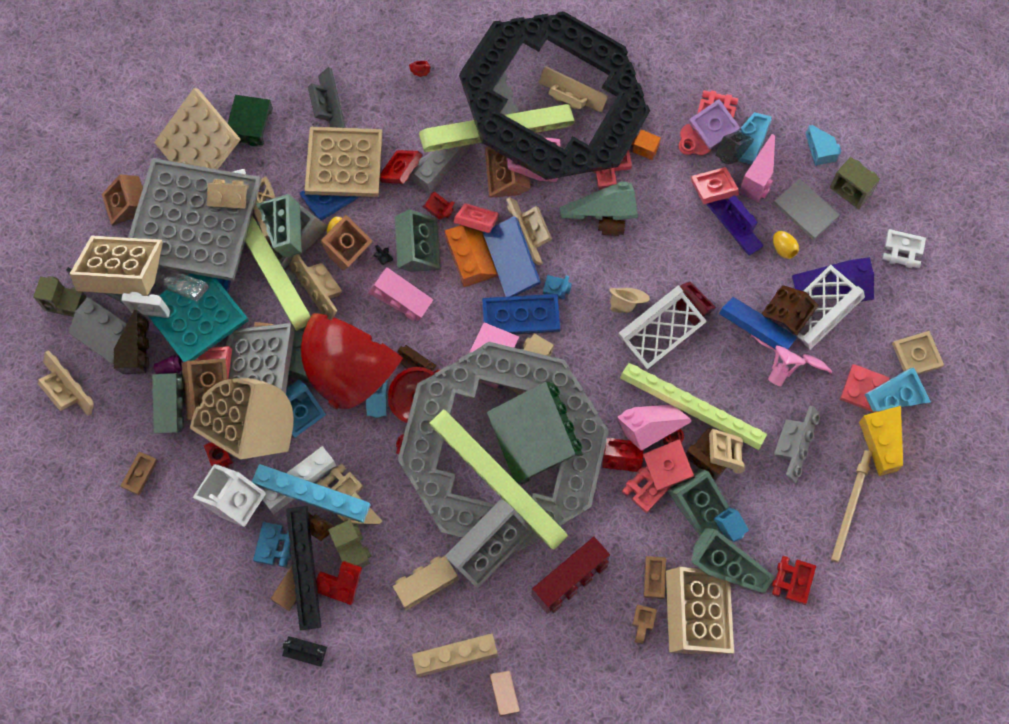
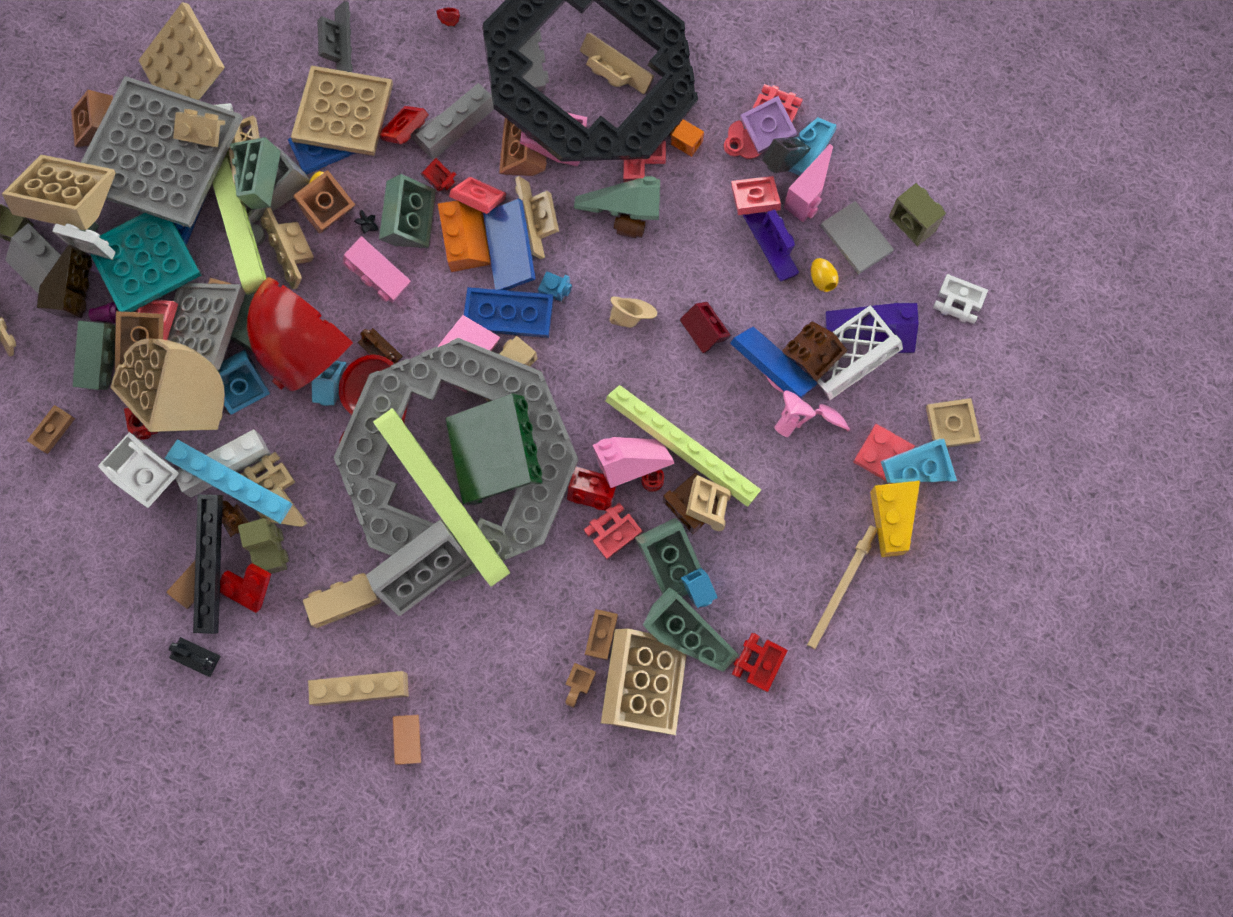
camera: 10 degrees right, 5 degrees up
(180, 283) = (127, 222): clear plate -> none
(249, 118) = (245, 48): dark green panel -> none
(268, 545) = (178, 530): dark azure plate -> none
(466, 132) = (477, 95): yellowish green beam -> none
(570, 575) = (503, 619): dark red brick -> none
(650, 315) = (656, 332): white fence -> none
(668, 465) = (639, 509): coral plate -> none
(795, 442) = (792, 503): light grey bracket -> none
(822, 146) = (889, 167): medium azure slope -> none

